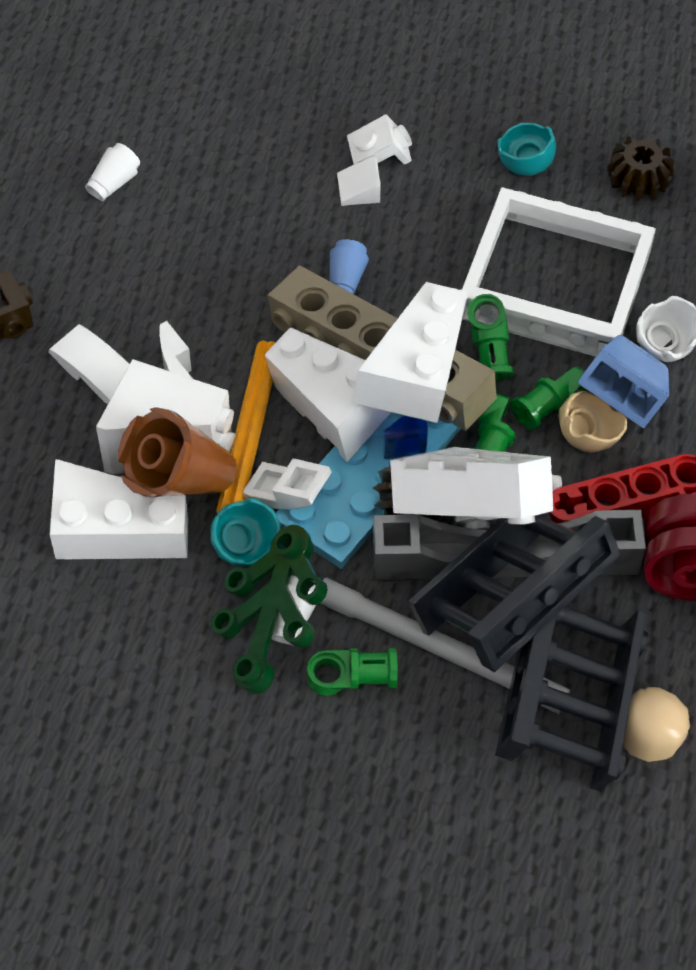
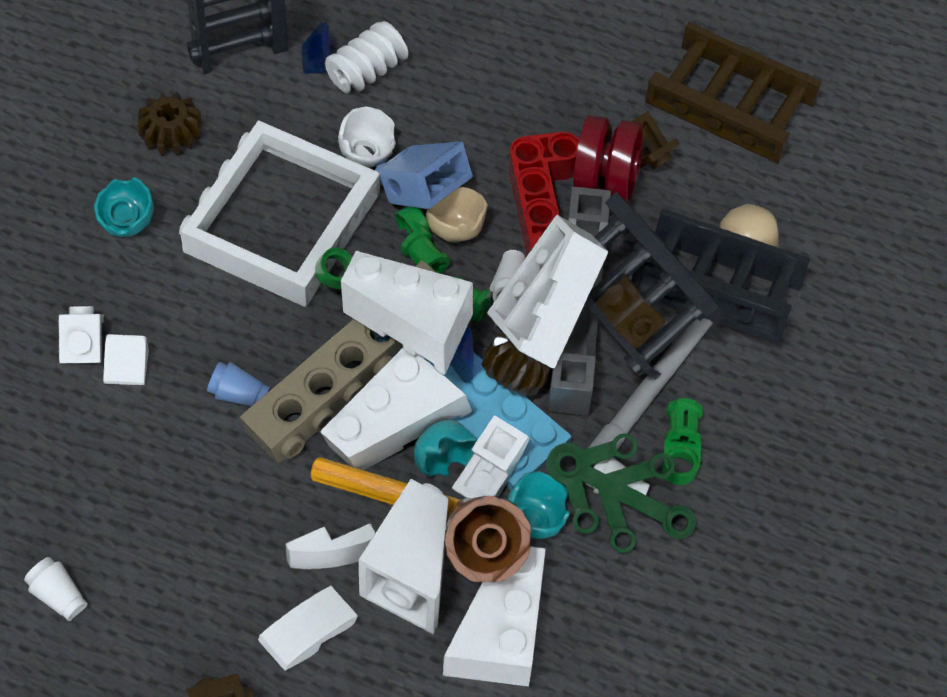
camera: 85 degrees left, 0 degrees up
(299, 437) = (442, 445): none -> teal hair
(467, 563) = (630, 312): none -> dark brown bracket

